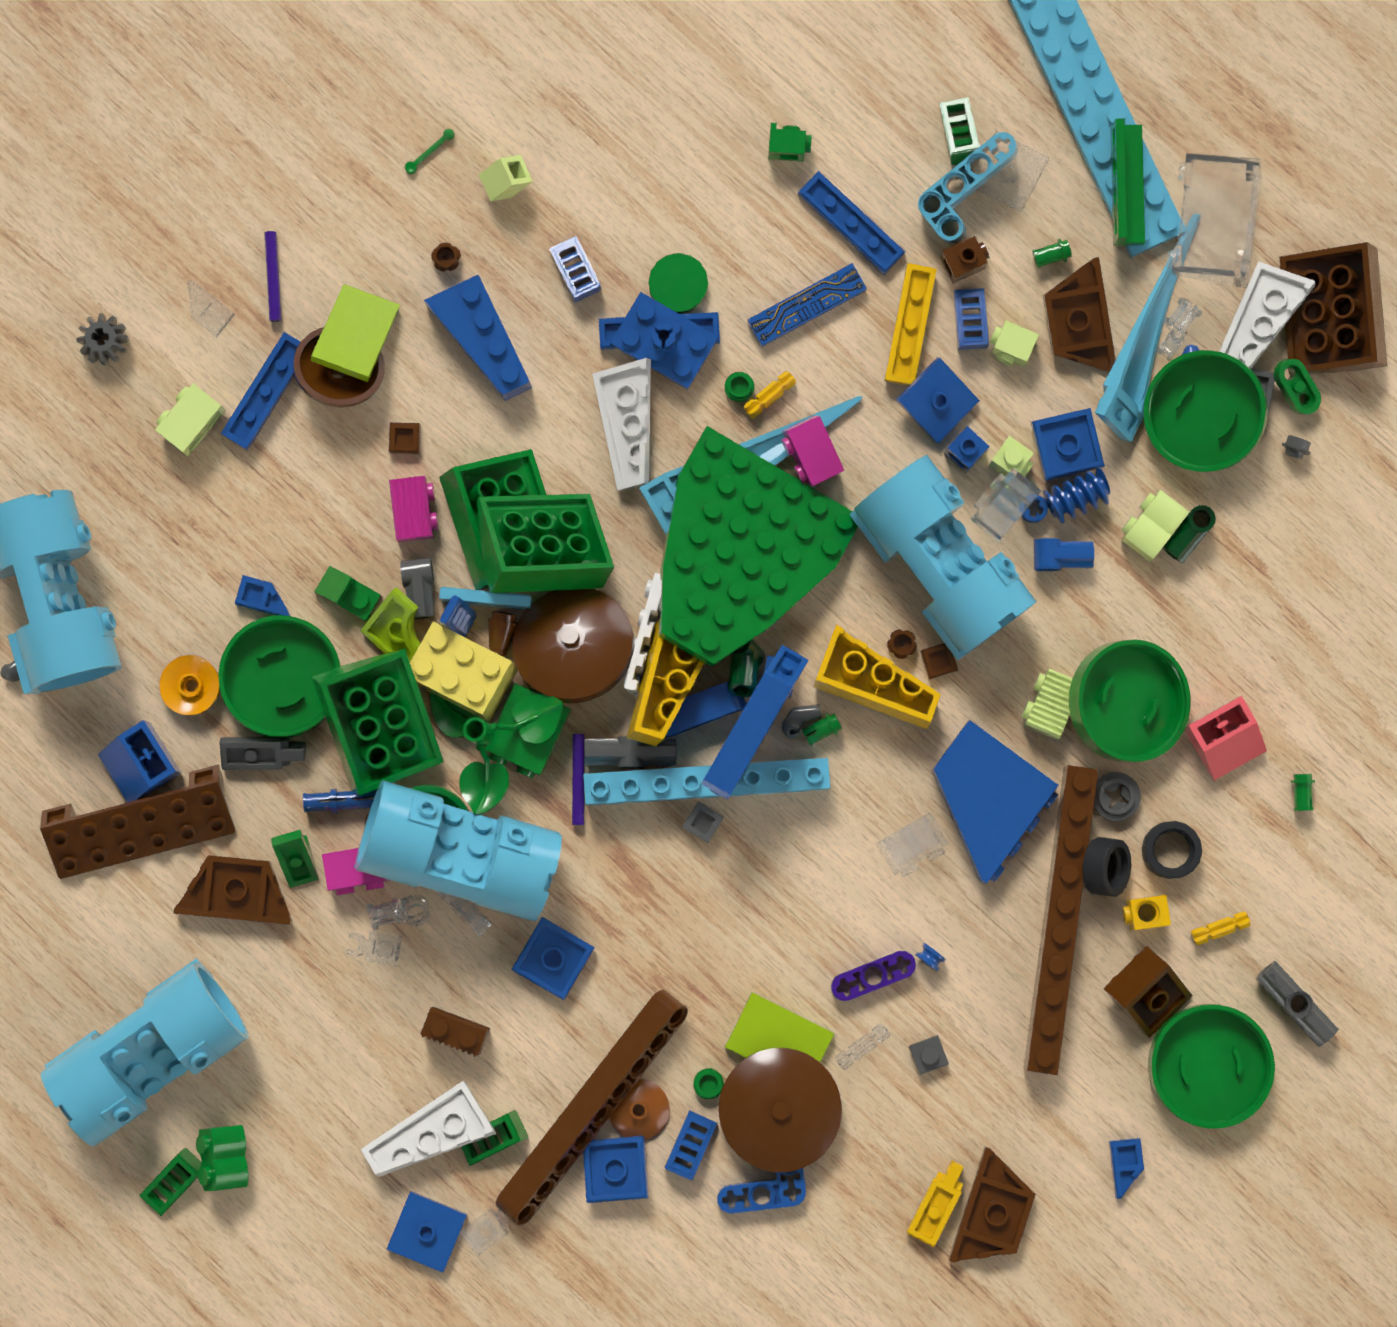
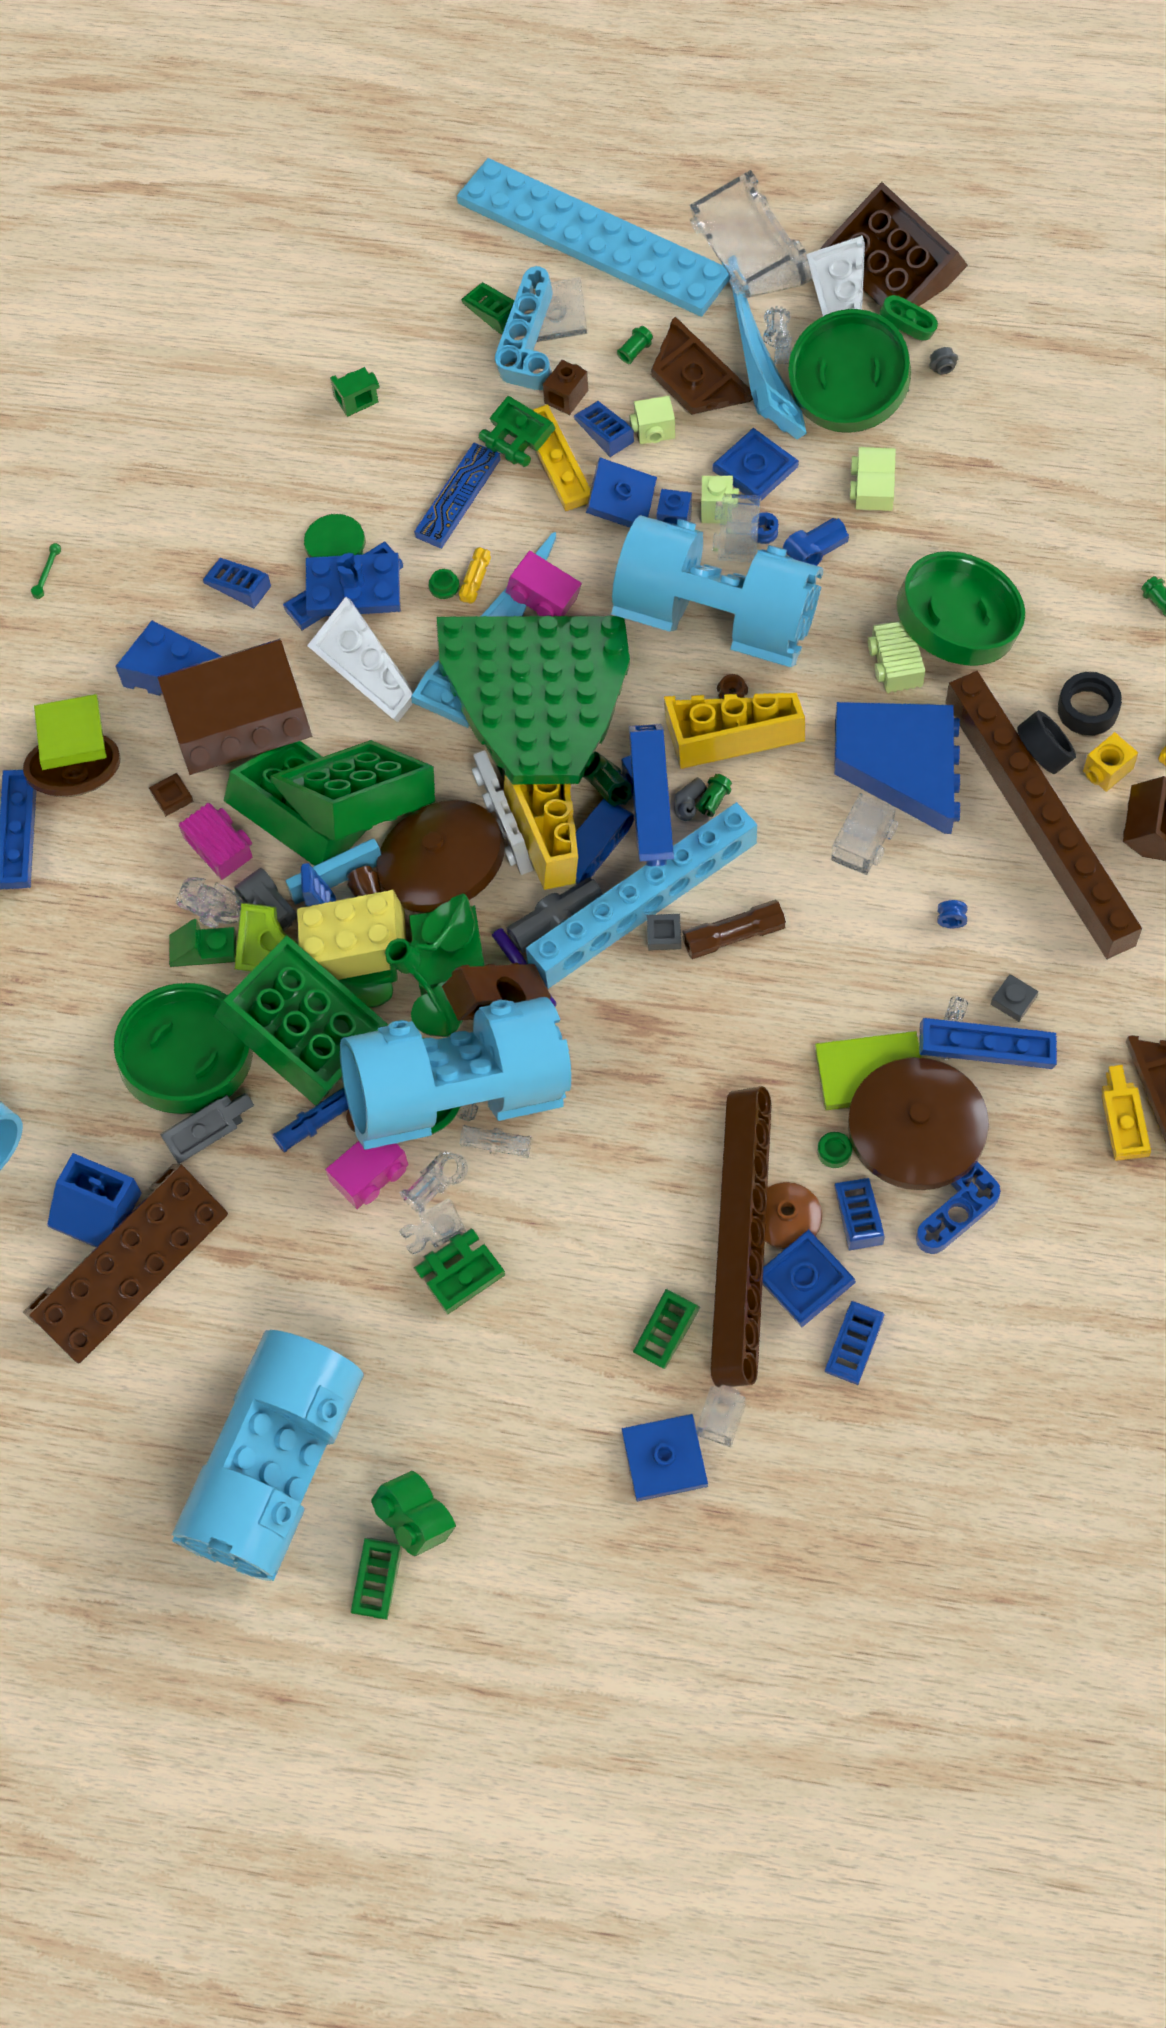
camera: 30 degrees left, 20 degrees down
(175, 681) = (94, 1096): light orange dish -> none
(235, 891) = (262, 1263): reddish brown wing -> none
(260, 596) = (115, 998): blue tile -> none
(295, 858) = (301, 1193): green slope -> none
(359, 565) = (211, 904): none -> clear plate
(372, 1003) = (463, 1279): none -> green plate
(433, 1130) = (605, 1352): white wing -> none
(442, 250) = (113, 629): reddish brown plate -> none
(455, 1031) = (563, 1250): reddish brown brick -> none
(493, 407) = (234, 706): none -> reddish brown slope
(505, 178) = (127, 544): yellowish green brick -> none
(516, 795) = (482, 985): none -> reddish brown arch
(553, 958) = (610, 1131): blue plate -> none
(639, 1228) = (865, 1315): none -> blue slope
(757, 856) = (711, 936): none -> reddish brown axle
(851, 222) = (441, 417): blue tile -> none
(876, 1083) = (988, 1043): none -> blue plate
(891, 960) = (913, 949): dark purple beam -> none
(898, 279) = (521, 423): none -> green plate
(938, 661) = (774, 681): reddish brown tile -> none
(1078, 495) = (794, 491): blue piece -> none
(1127, 184) = (657, 258): green fence -> none
(1129, 791) = (1016, 685): dark grey gear -> none
(1188, 535) = (908, 465): dark green piece -> none
(1226, 738) = (1063, 589): coral slope -> none

